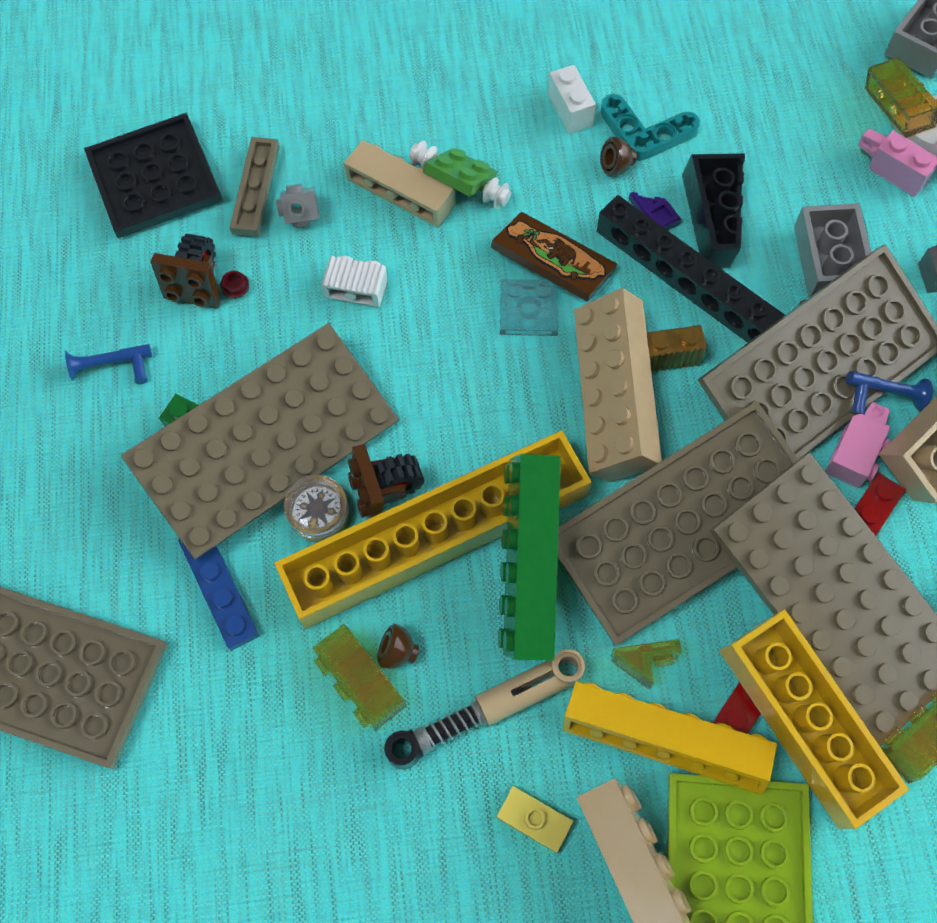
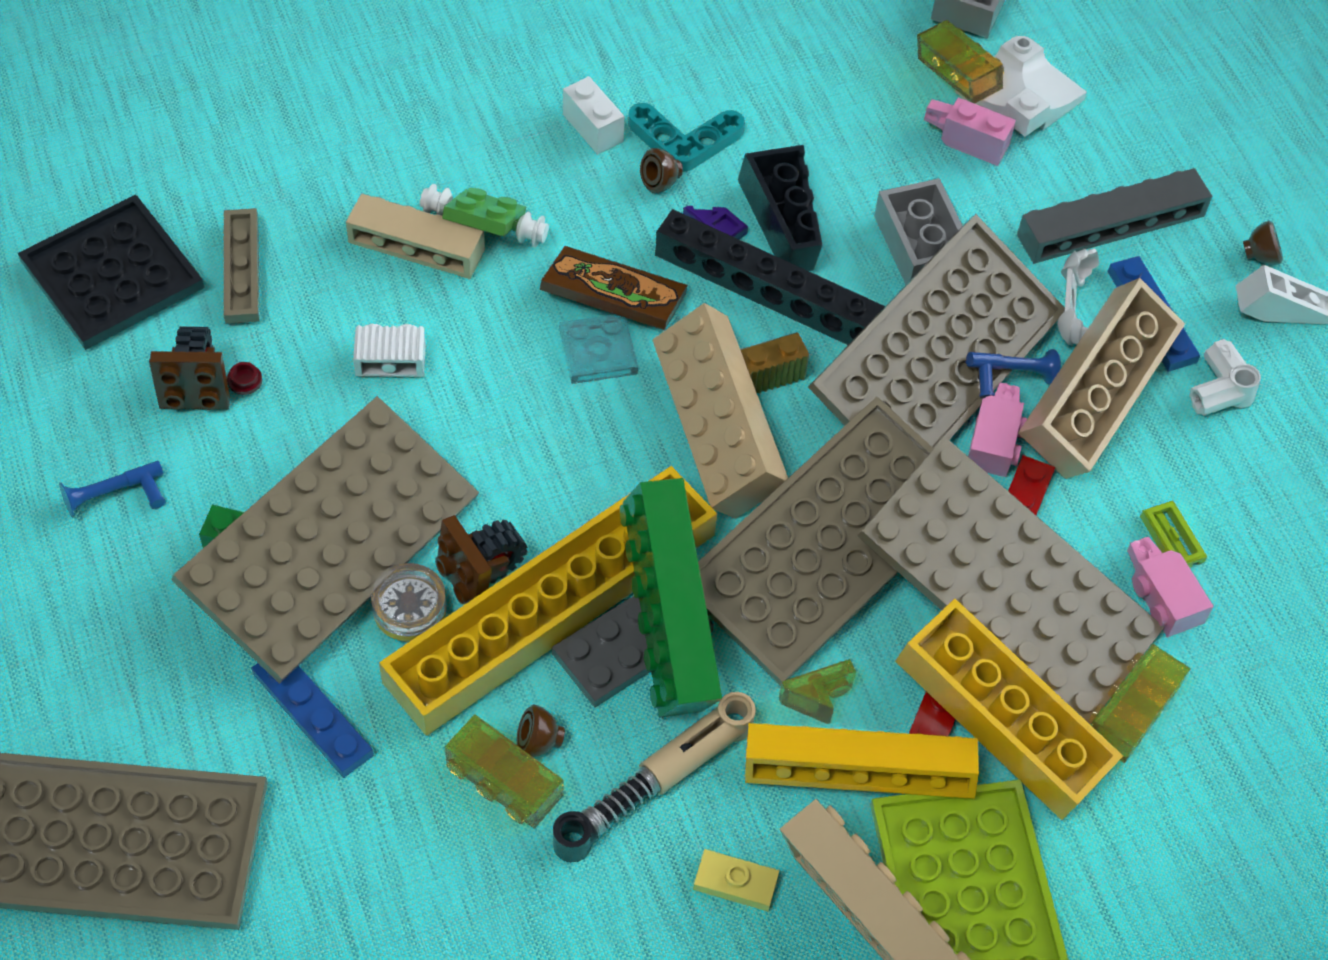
camera: 20 degrees left, 10 degrees down
(305, 197) = (313, 281): light grey brick -> none
(472, 585) = (606, 653): none -> dark grey plate

